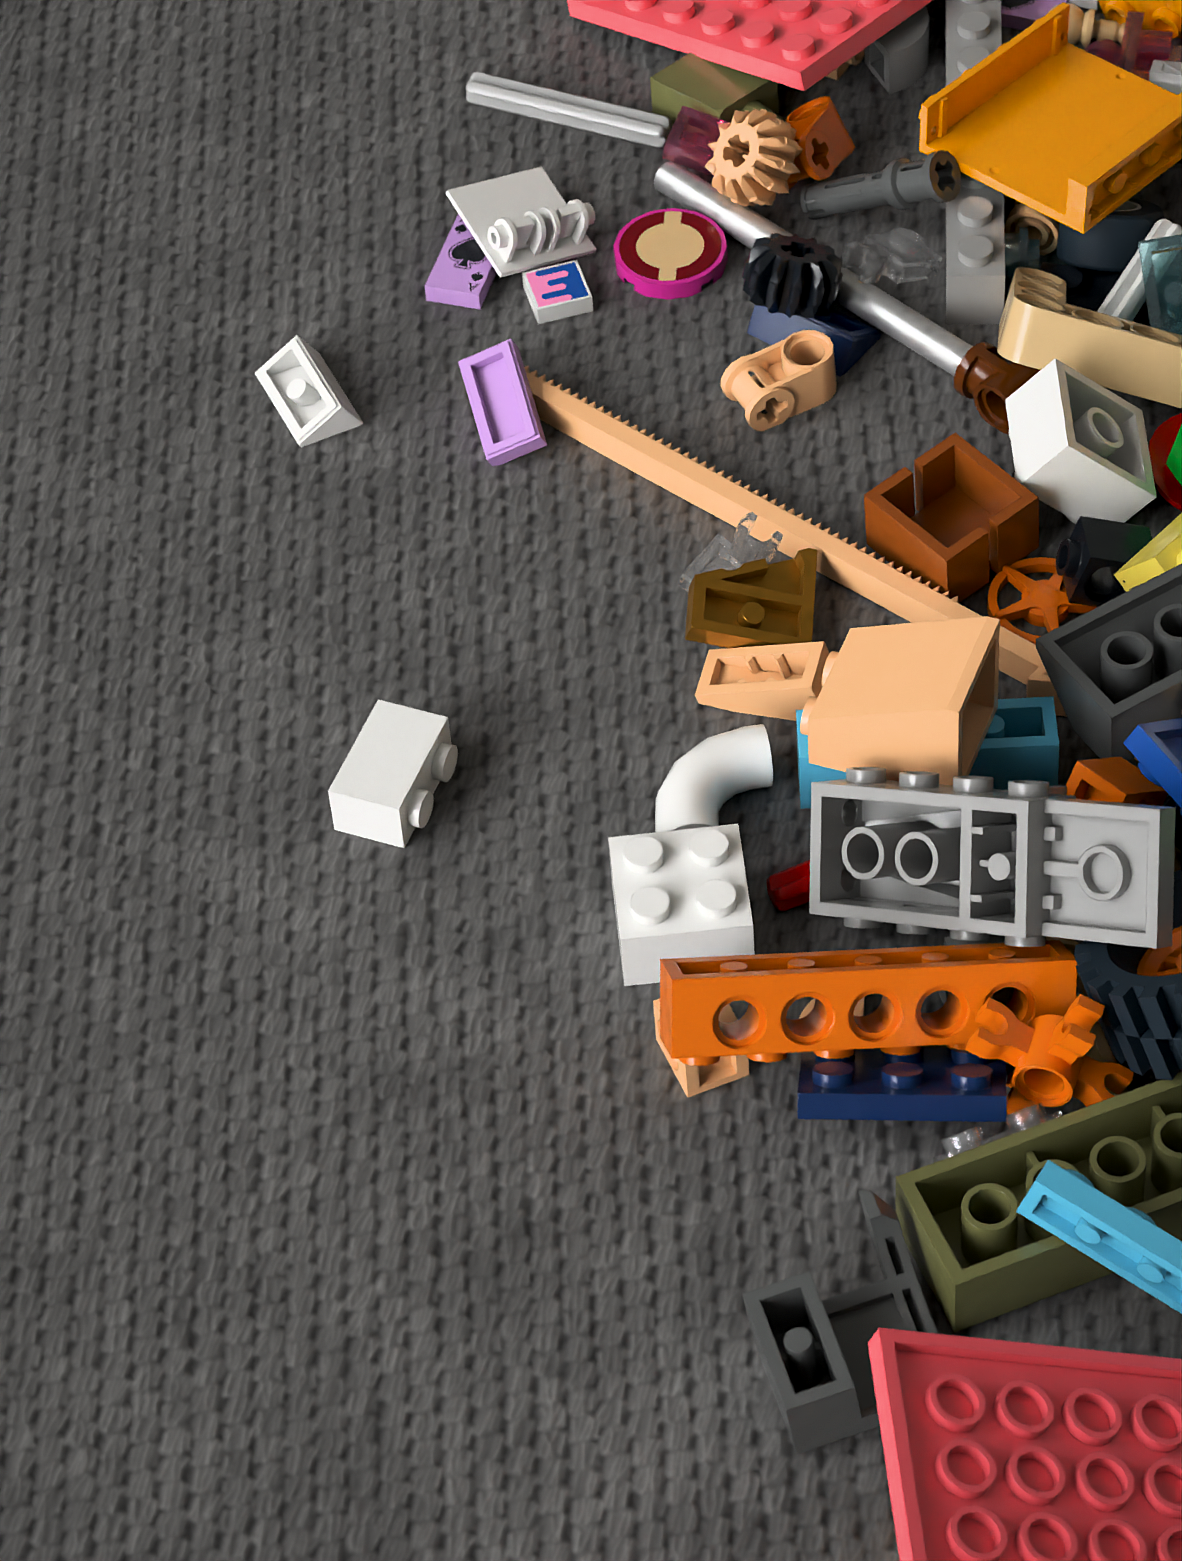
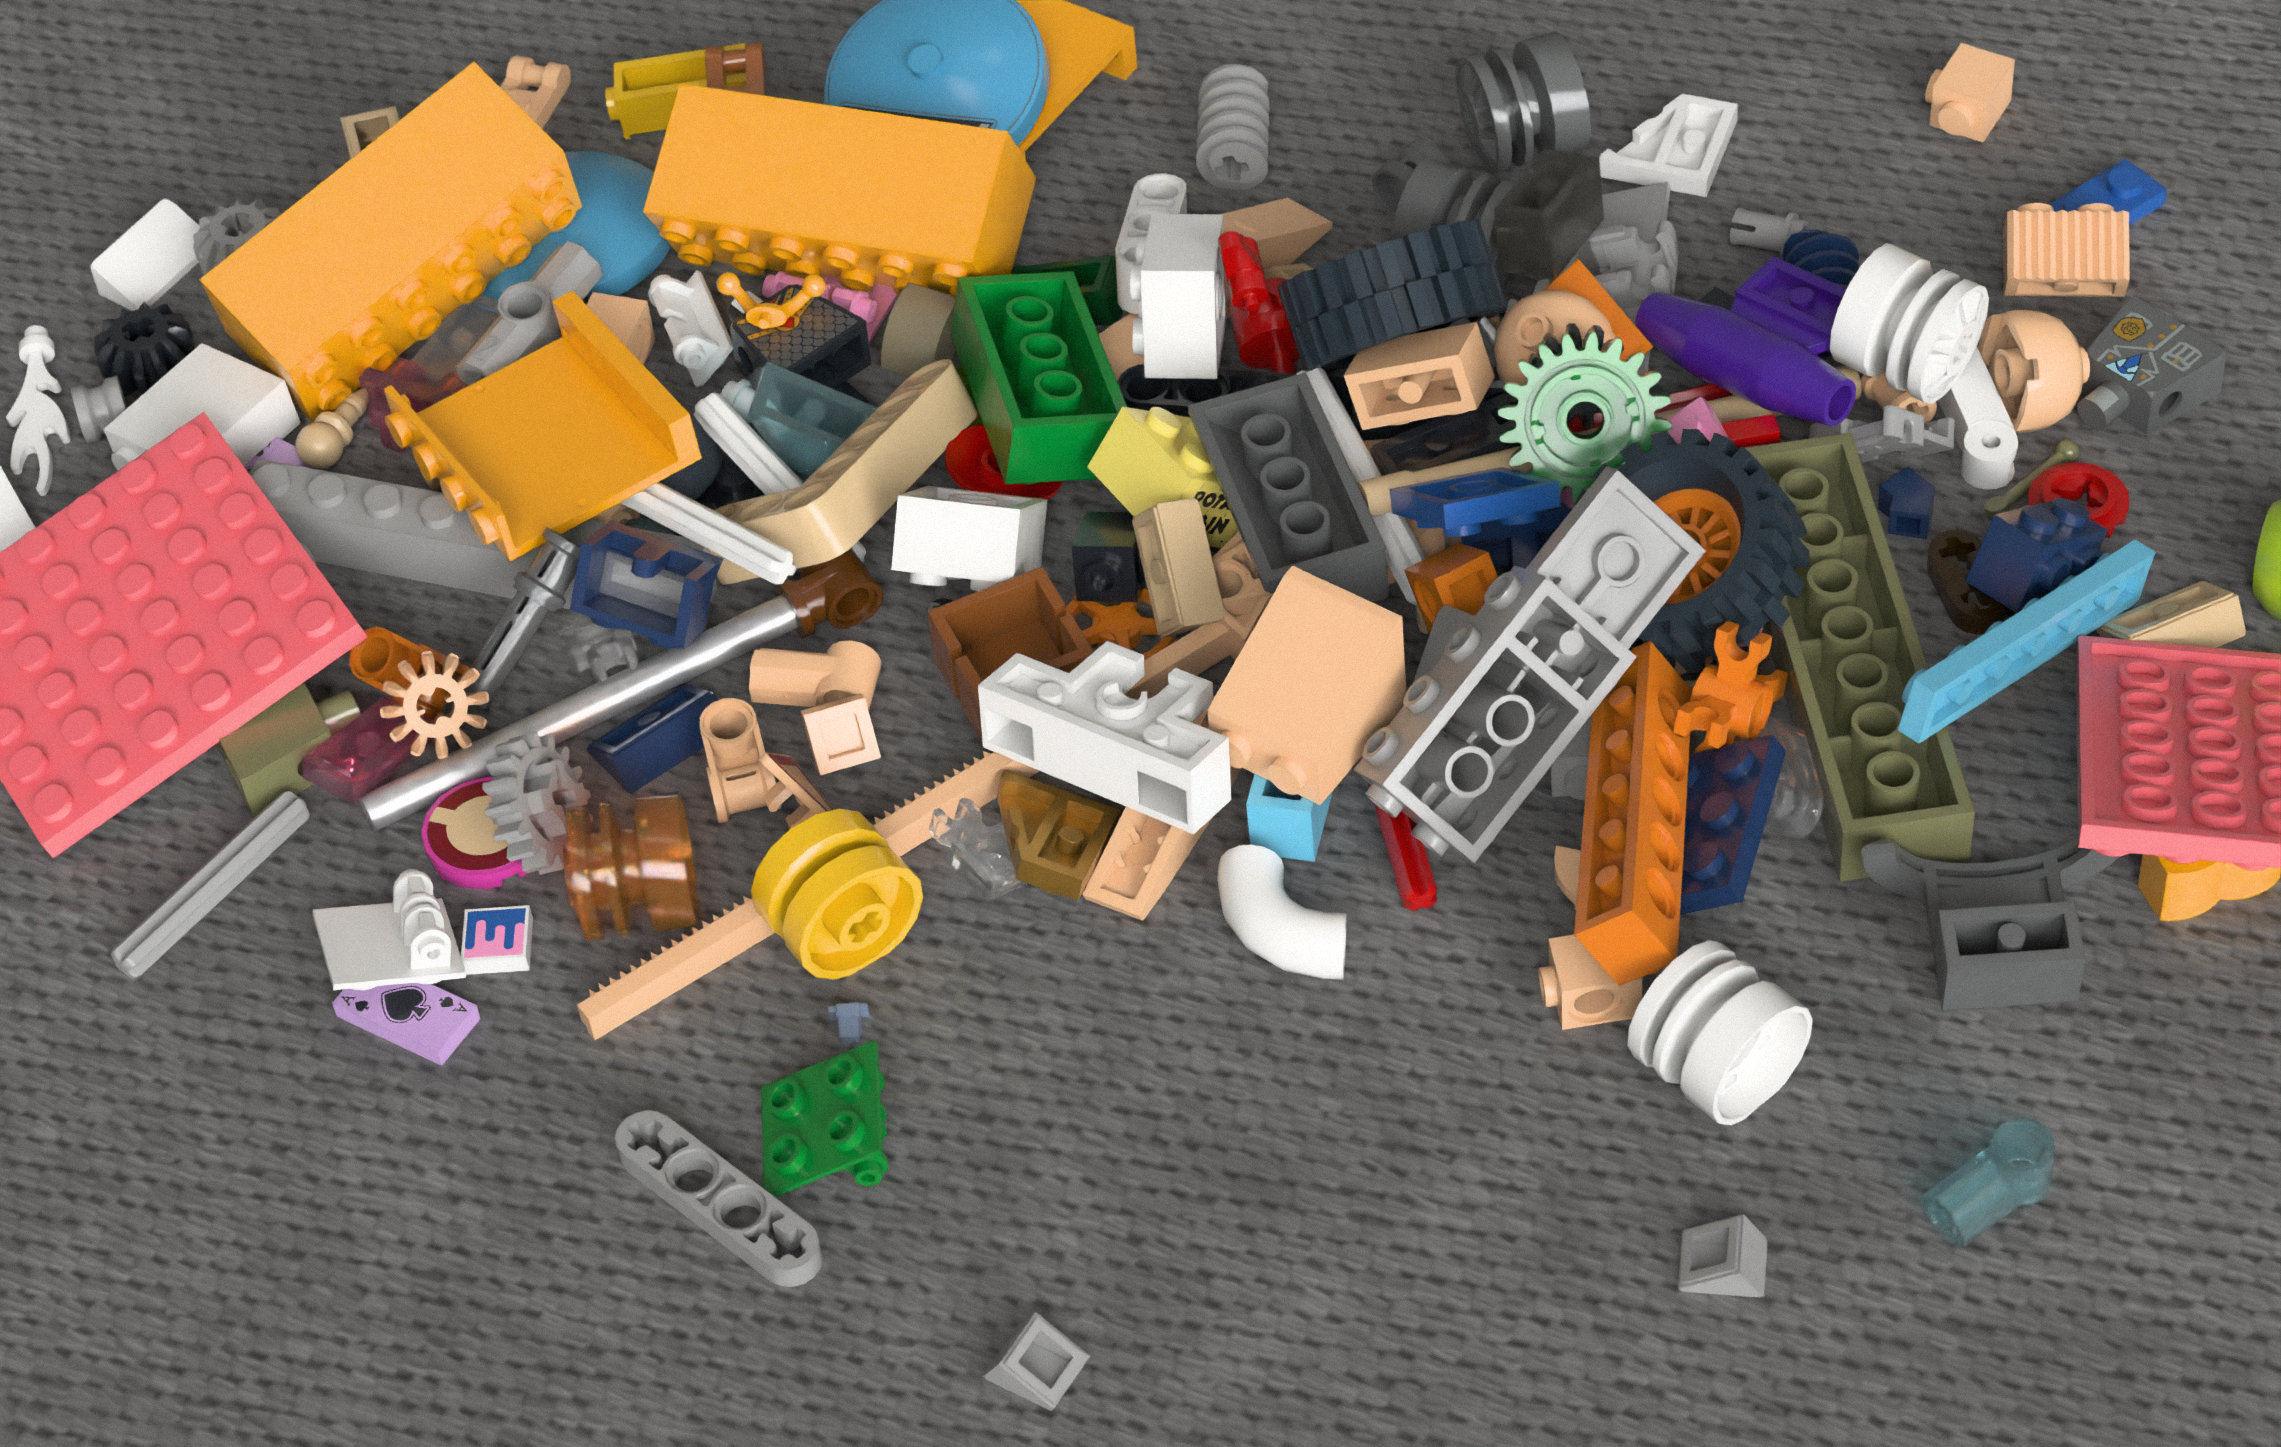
camera: 75 degrees left, 0 degrees up
(196, 741) = (1037, 1362): none -> light grey slope
(307, 393) = (546, 1193): white slope -> none
(315, 495) = (725, 1192): none -> light grey beam
(392, 774) = (1165, 1179): white brick -> none
(407, 1210) = (1723, 1258): none -> light grey slope
(428, 526) = (825, 1122): none -> green hinge
(502, 403) = (666, 1002): lavender tile -> none
(527, 1402) = (1992, 1185): none -> clear light blue piece
(530, 533) = (849, 1020): none -> sand blue piece
(622, 332) = (631, 867): none -> clear orange wheel
(627, 466) = (836, 893): none -> yellow wheel
(633, 1131) = (1719, 1032): none -> white wheel
(679, 898) = (1427, 962): white brick -> none
(690, 271) = (531, 799): none -> light grey gear
(758, 424) = (792, 781): none -> light nougat piece
(792, 275) = (618, 710): black gear -> none
(836, 437) = (840, 734): none -> light nougat plate
(841, 580) = (1107, 743): none -> white piece
(899, 413) = (813, 677): none -> light nougat piece
(925, 241) = (644, 584): none -> dark blue window
(997, 268) = (714, 532): none -> white axle
(1082, 589) = (1178, 567): none -> tan slope

